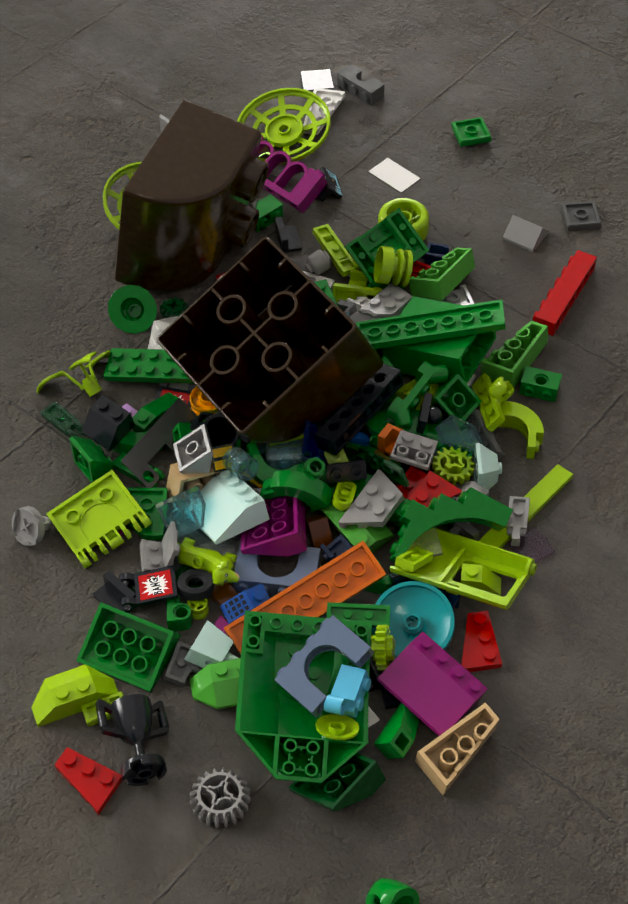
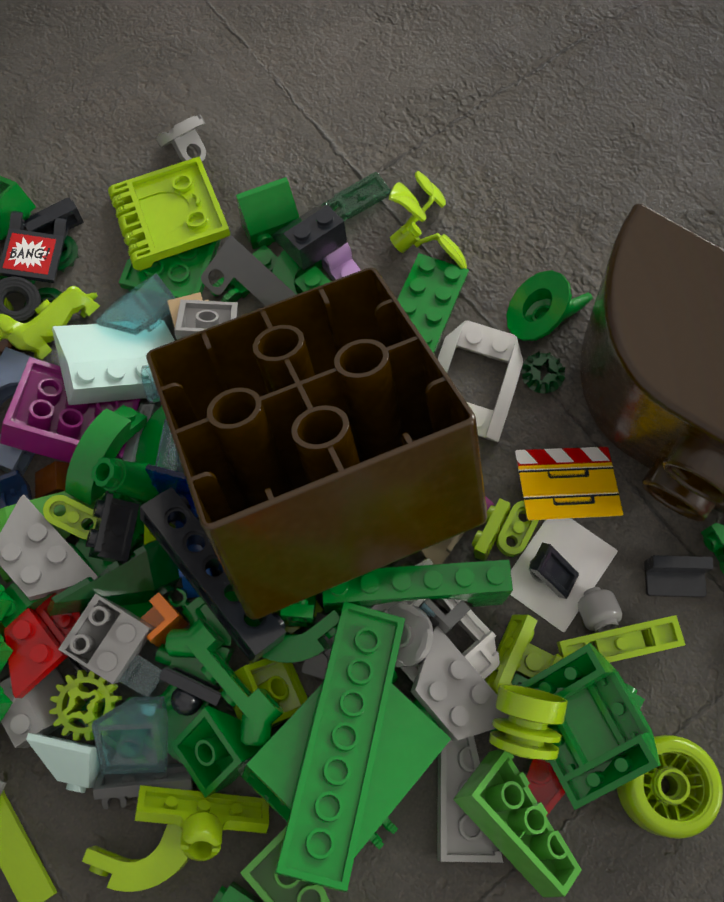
camera: 100 degrees right, 20 degrees up
(162, 553) = (85, 266): light grey bracket -> none
(436, 252) = (583, 828): dark blue window -> none

